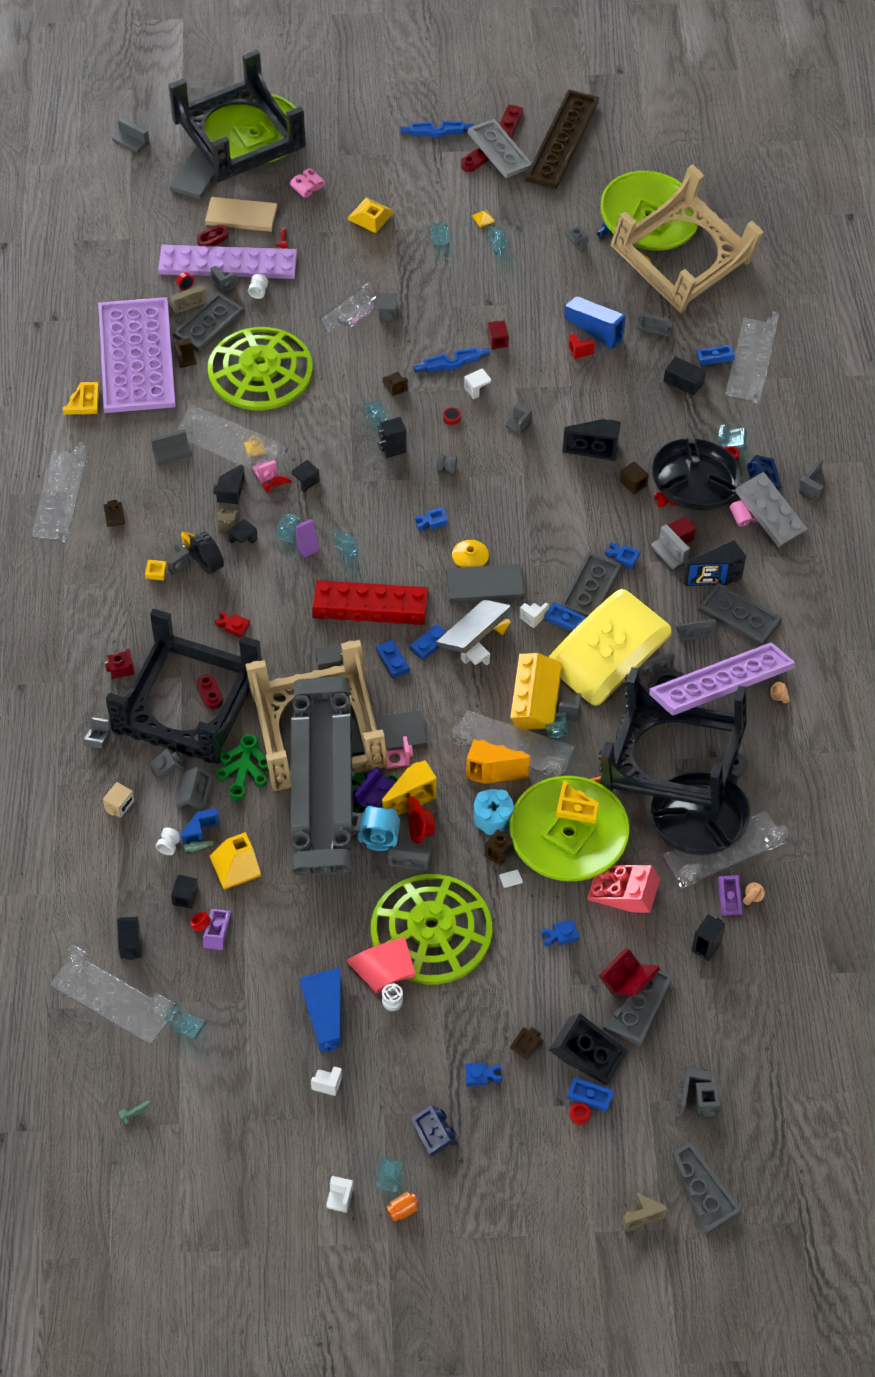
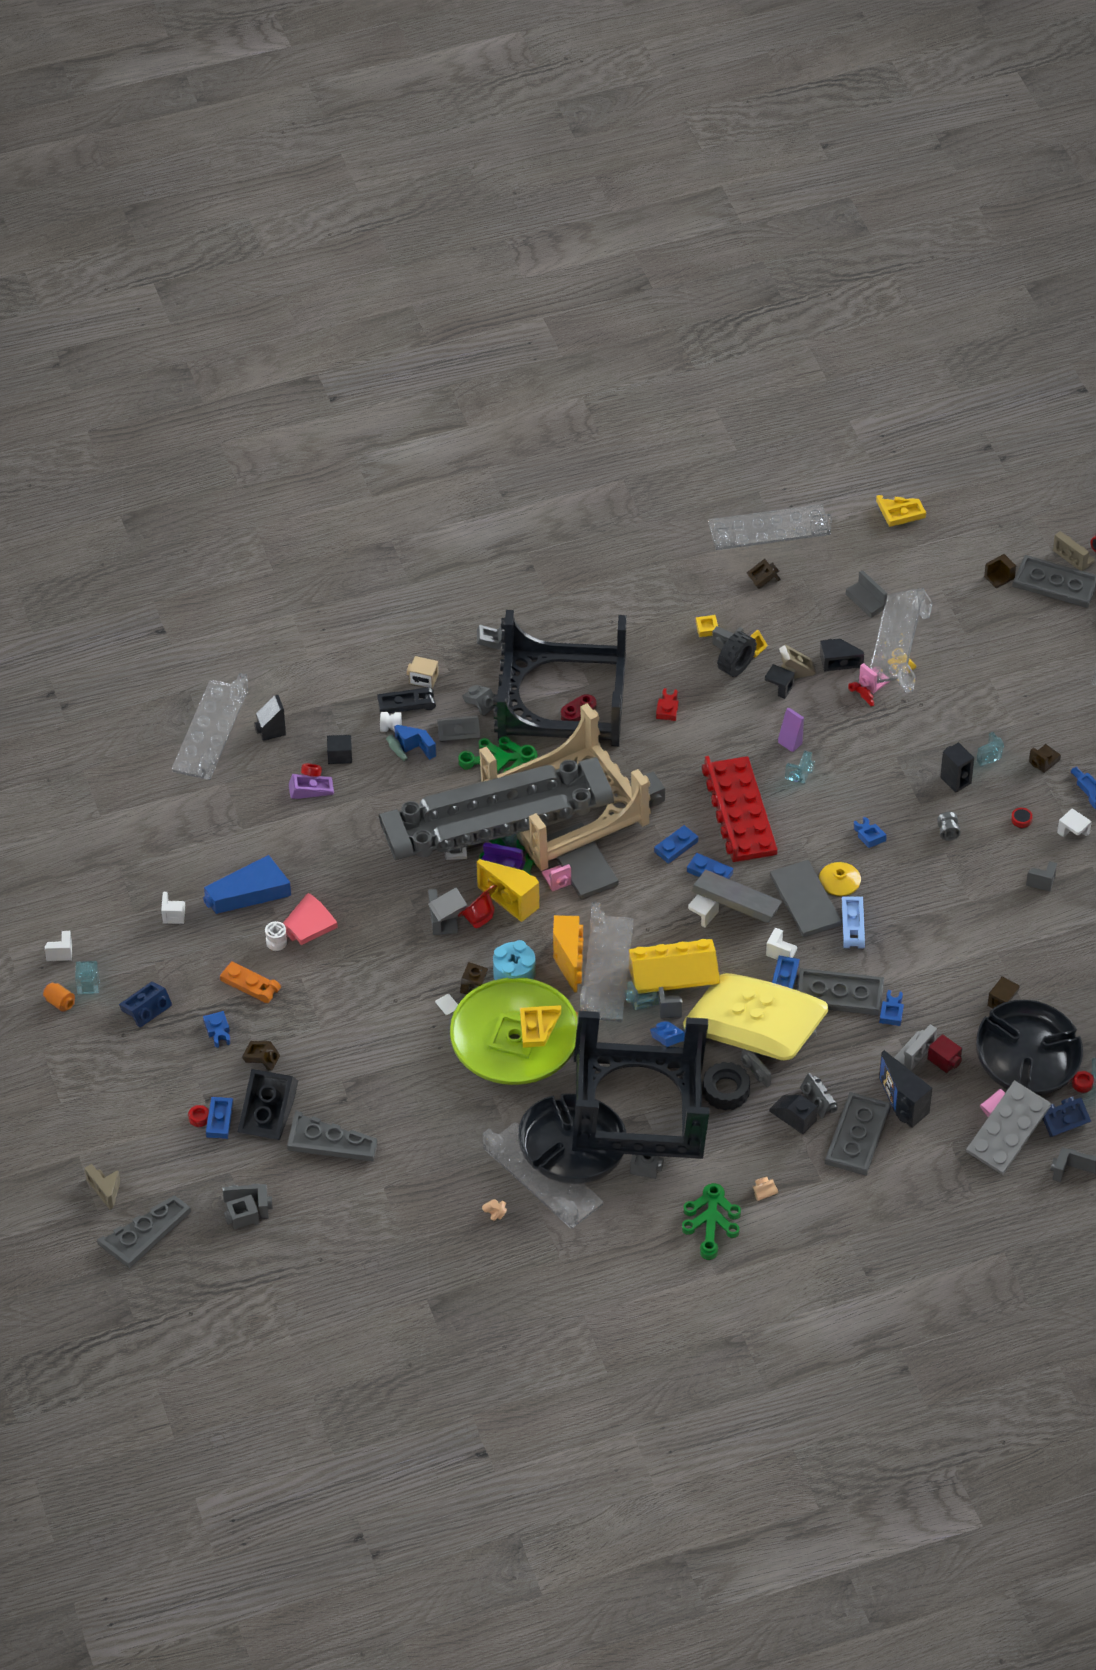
camera: 75 degrees right, 5 degrees down
(120, 664) = (580, 626): dark red brick -> none
(124, 1114) = (95, 772): sand green piece -> none
(136, 355) = (979, 532): lavender plate -> none
(145, 824) = (406, 700): none -> black plate
(185, 1023) = (200, 789): clear light blue bracket -> none
(235, 861) = (385, 779): yellow slope -> none
(261, 372) = (1013, 645): lime dish -> none
(286, 527) = (812, 714): clear light blue bracket -> none
(307, 475) = (878, 711): black panel -> none
(379, 828) = (459, 874): medium azure brick -> none
(414, 841) = (448, 905): none -> light grey slope
(436, 1034) = (249, 982): none -> orange plate
(440, 934) = (368, 958): lime dish -> none
(502, 626) = (752, 923): yellow slope -> none
(524, 556) = (853, 921): none -> light blue plate
(564, 932) = (396, 1060): blue plate -> none
(593, 439) = (1037, 945): black slope -> none
(606, 715) = (667, 1033): none -> blue plate
(626, 888) = (463, 1098): coral slope -> none
(626, 975) = (360, 1115): dark red bracket -> none
(708, 937) = (422, 1173): black piece -> none
(709, 648) = (796, 1112): none -> black slope
(721, 678) = (748, 1121): lavender plate -> none
(730, 895) = (489, 1189): medium lavender slope -> none
(801, 737) = (712, 1216): none -> green plant

